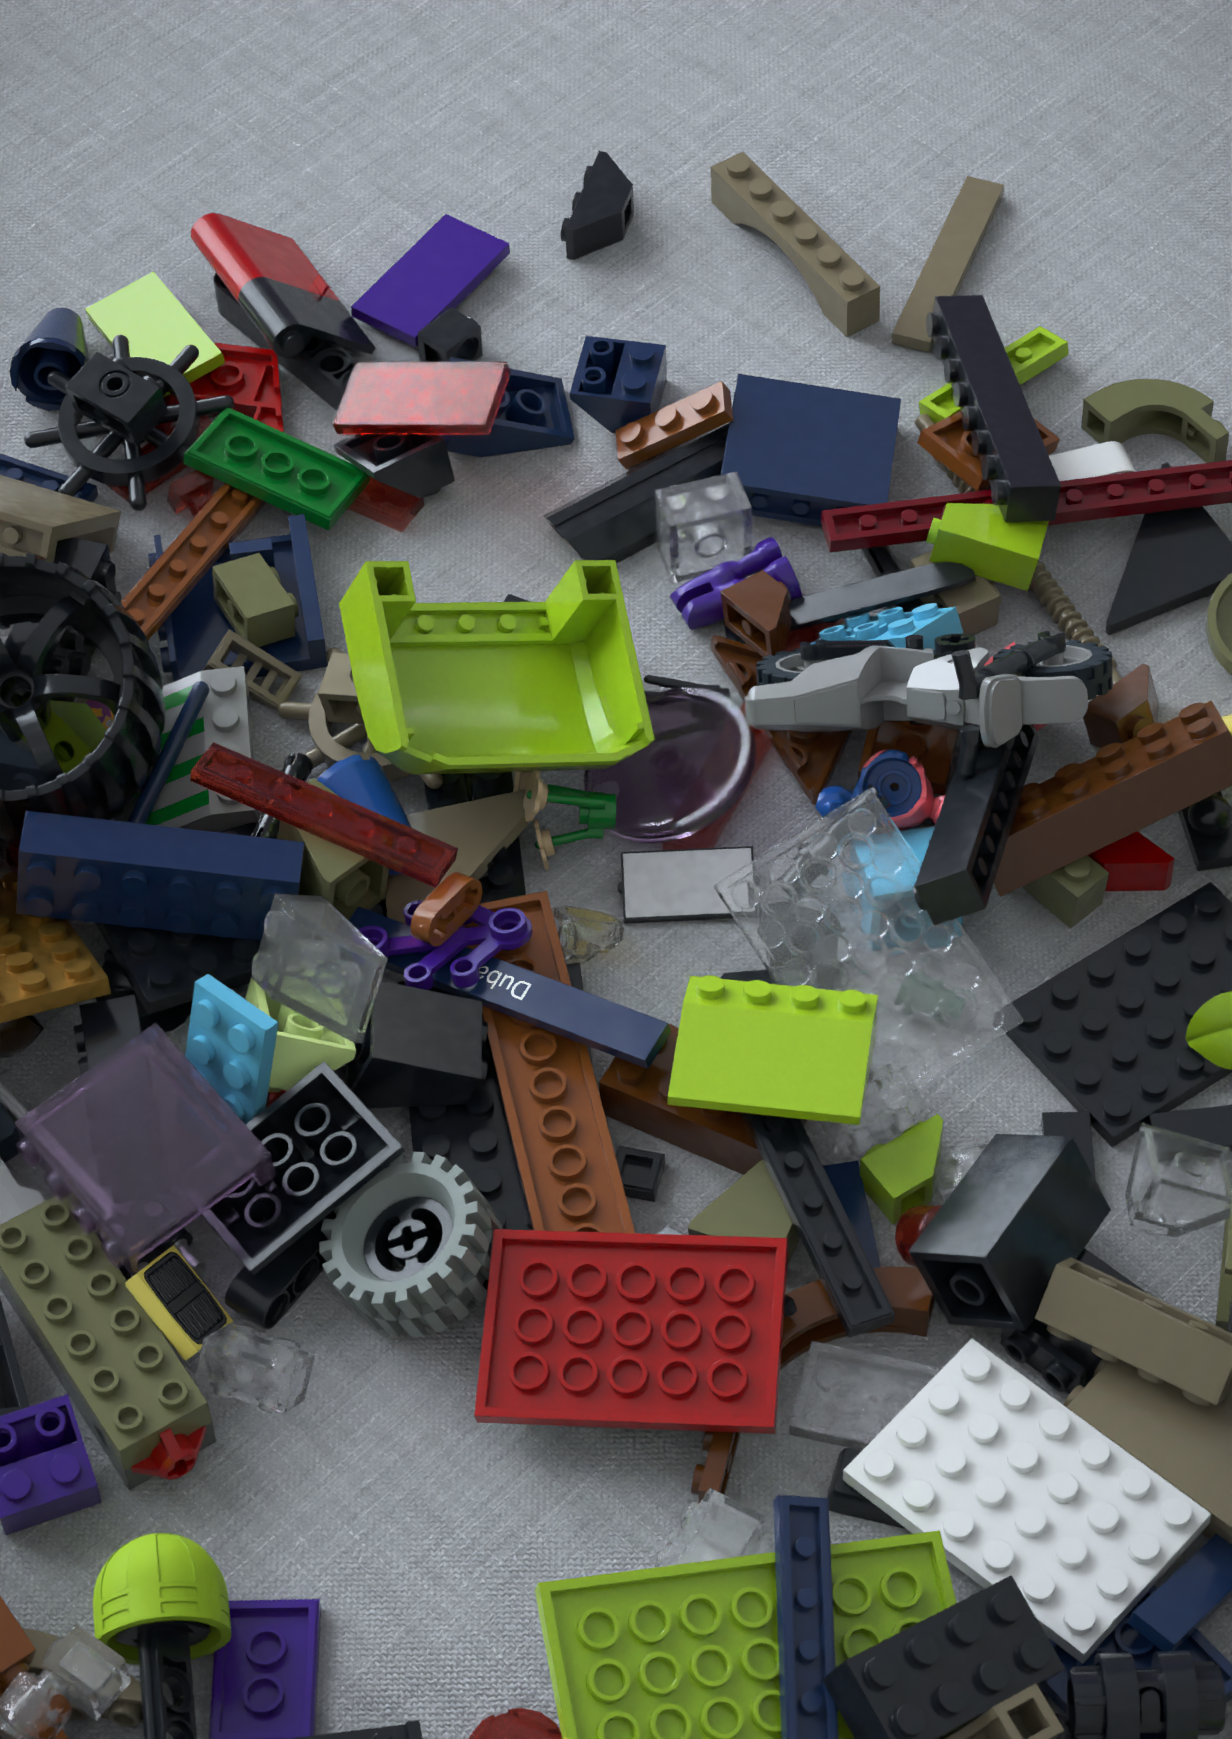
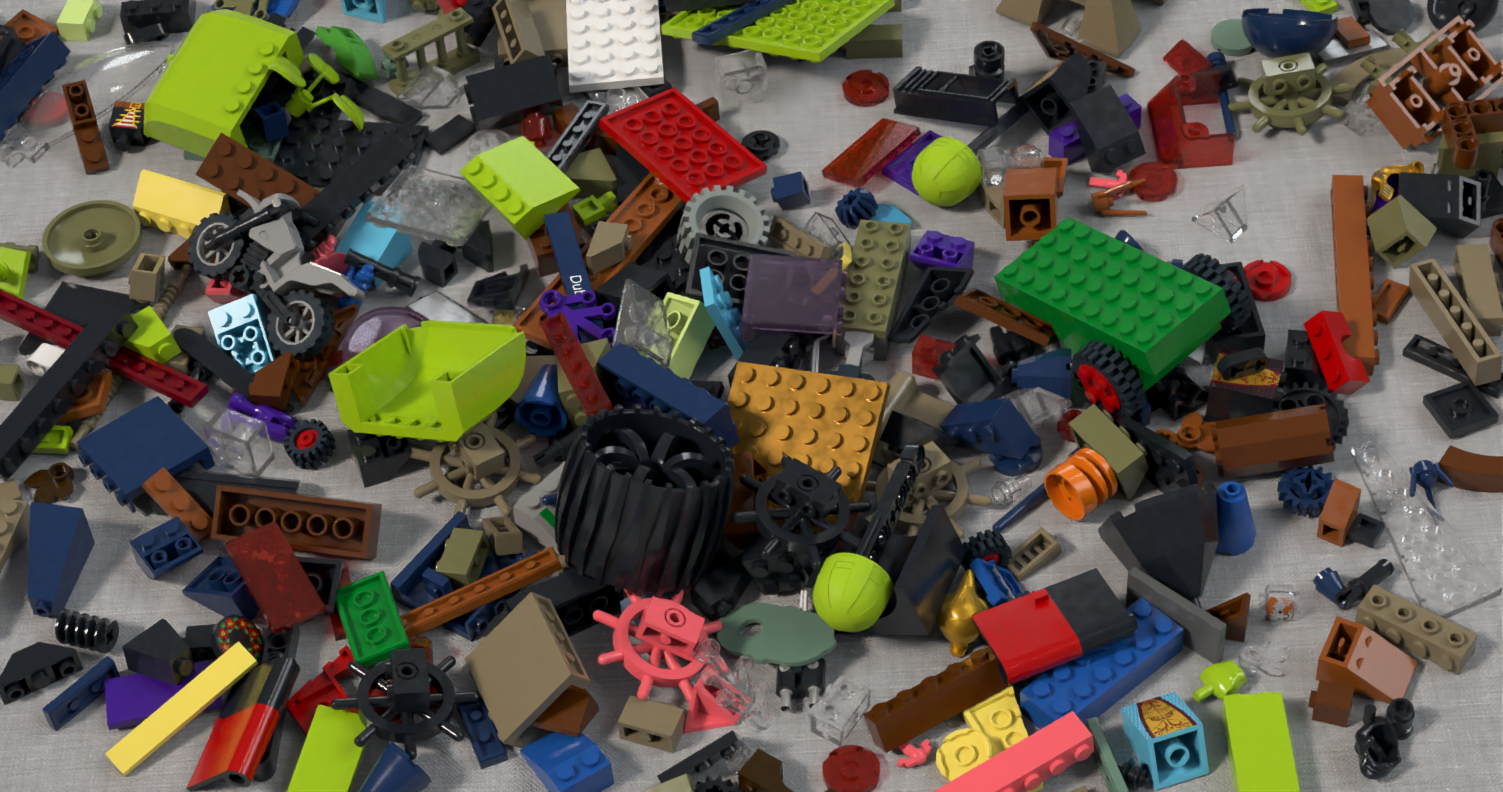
camera: 135 degrees left, 5 degrees down
(224, 1515) = (890, 213): none -> dark azure tile
(267, 1467) = (856, 206): none -> dark blue gear
(298, 1326) = (797, 240): none -> dark tan plate
(355, 1604) = (871, 152): none -> clear red tile
(378, 269) = (181, 708): none -> light yellow tile
(403, 1421) = (790, 191): none -> dark blue brick
(408, 341) = (234, 629): none -> tile
(446, 909) = (577, 315): dark orange beam -> none
(470, 281) = (159, 654): none -> black slope
(504, 494) = (305, 520): none -> reddish brown brick
(516, 221) = (80, 694): none -> dark blue tile
(540, 1076) = (608, 246): none -> dark tan slope
(553, 1482) = (762, 138): none -> black gear
(599, 262) = (86, 631): none -> black piece
(643, 943) = (498, 291): none -> black wing
(644, 599) = (309, 444): none -> black wheel
(686, 1181) = (593, 209): none -> lime plate
(742, 295) = (57, 553): none -> dark blue slope
(881, 372) = (52, 483): none -> dark brown plate
(1129, 620) = (146, 277): none -> dark tan brick

